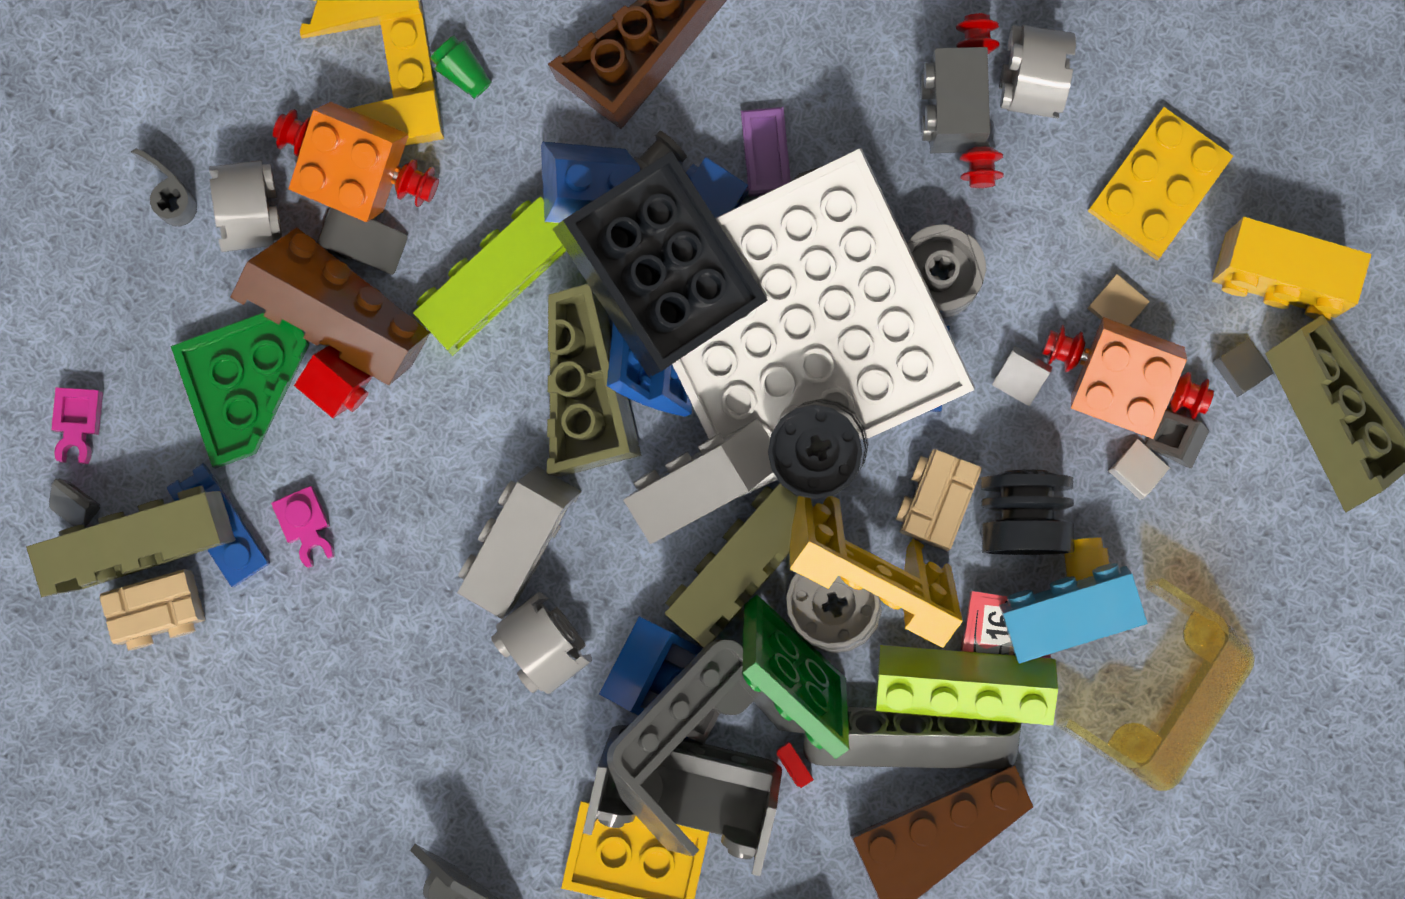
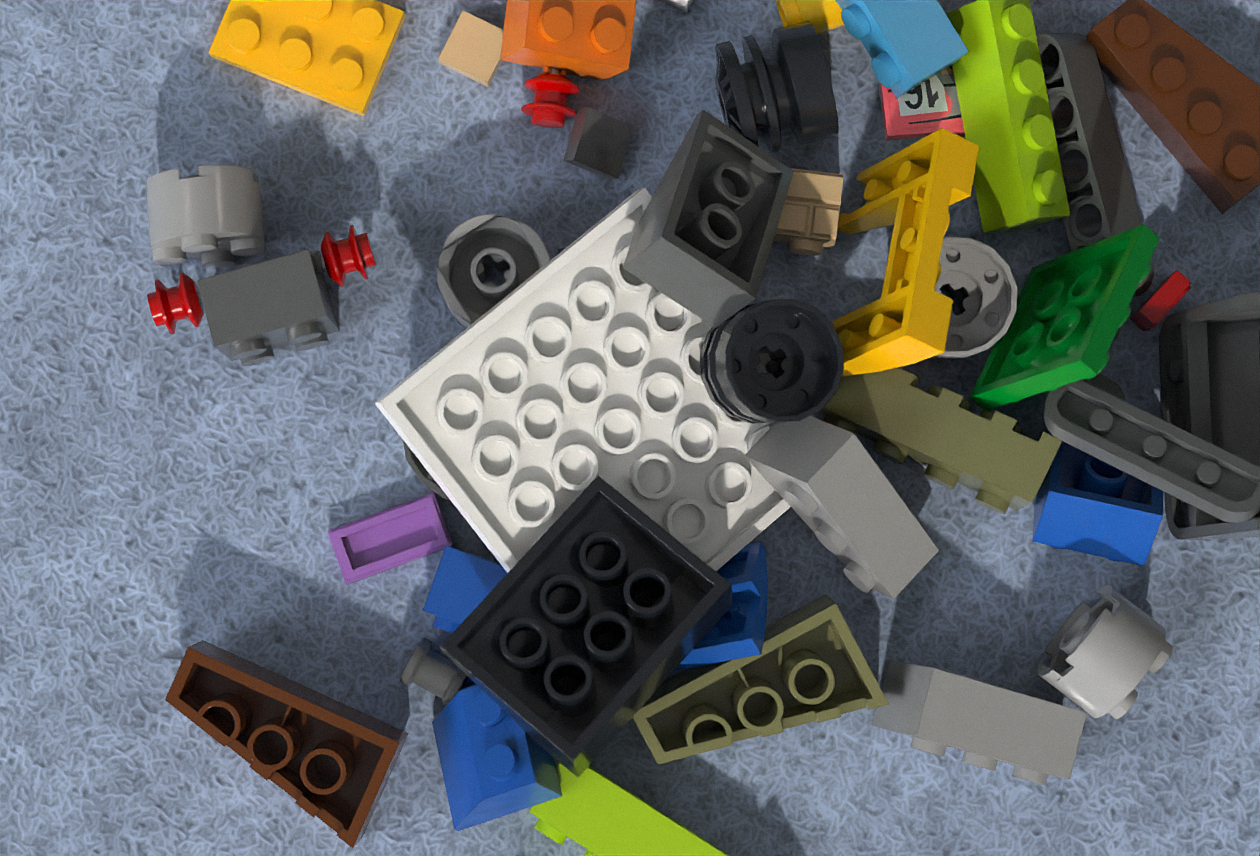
camera: 105 degrees left, 0 degrees up
(936, 432) = (711, 222): none -> dark grey slope

